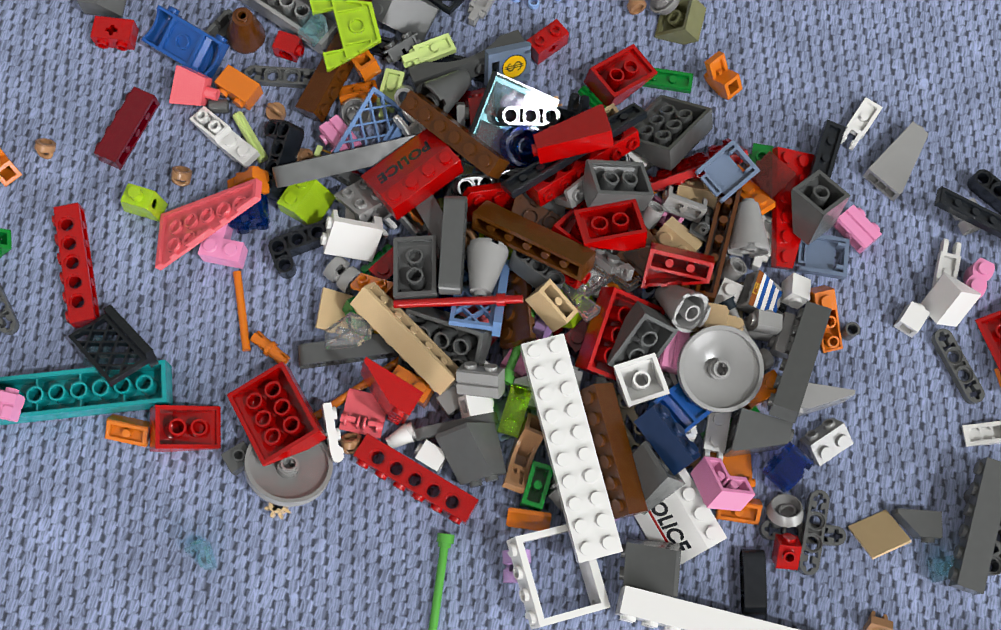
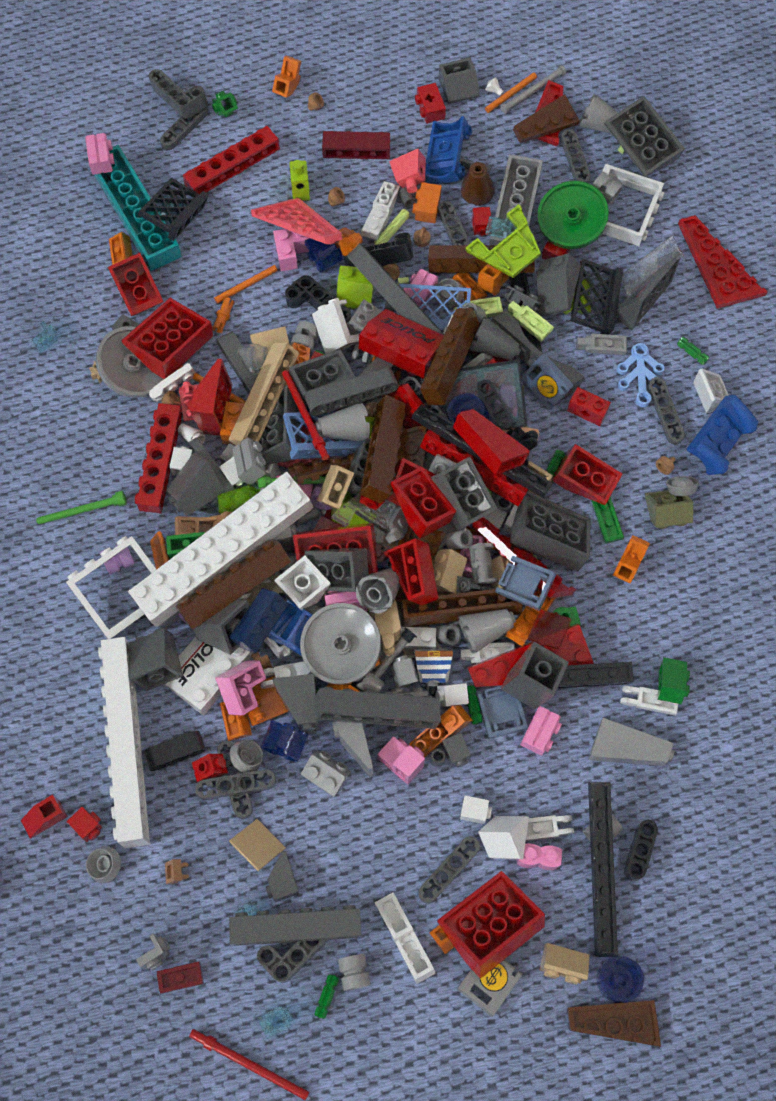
camera: 70 degrees right, 5 degrees down
(815, 279) = (473, 706): none -> green axle
(848, 361) = (402, 759): none -> bright pink brick
(852, 310) = (456, 750): none -> dark grey brick
(854, 95) = (673, 681): none -> green brick

